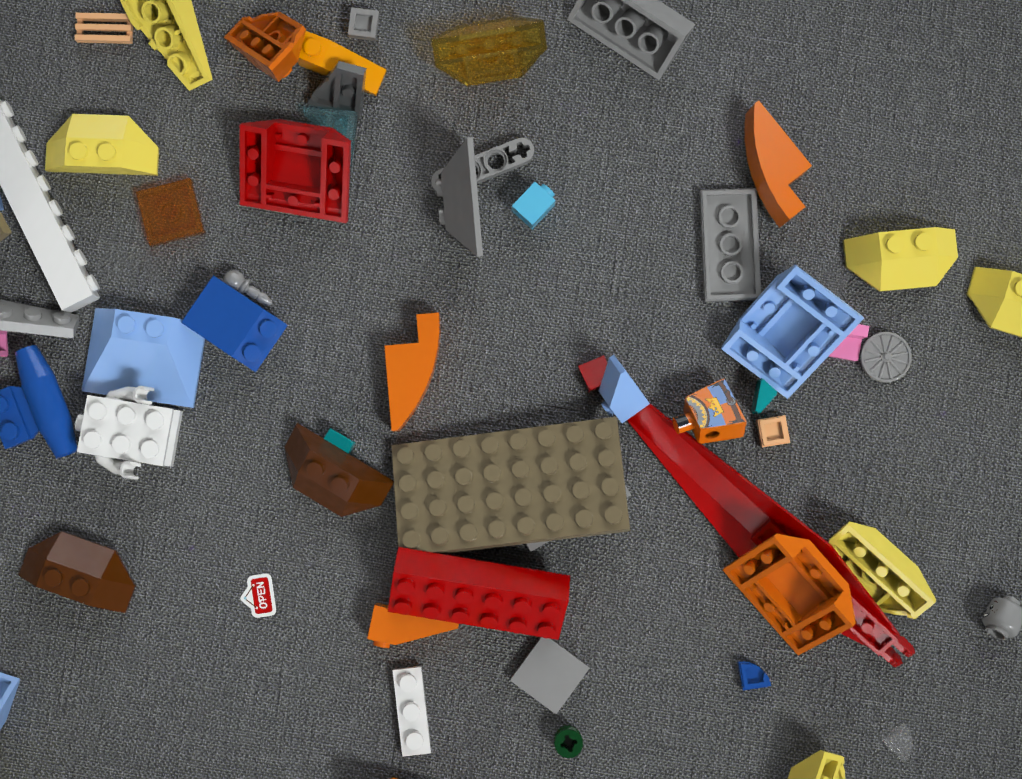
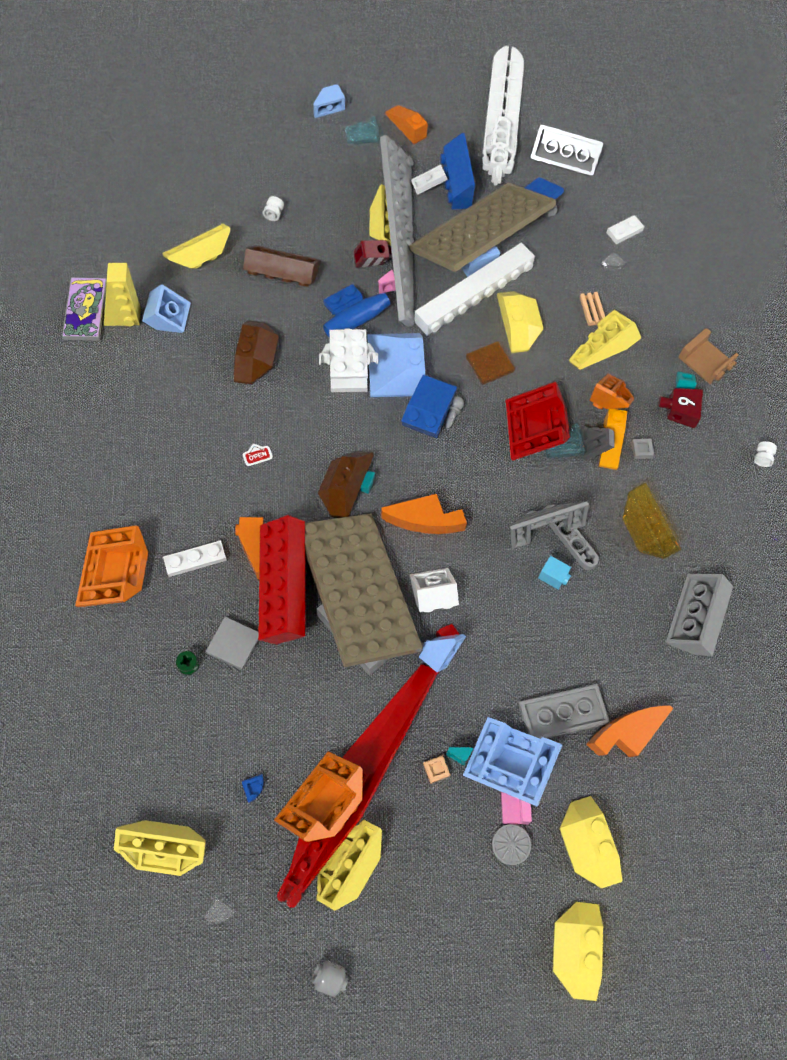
camera: 75 degrees right, 20 degrees down
(526, 380) = (434, 590): none -> white slope
(711, 414) = (438, 715): torso -> none

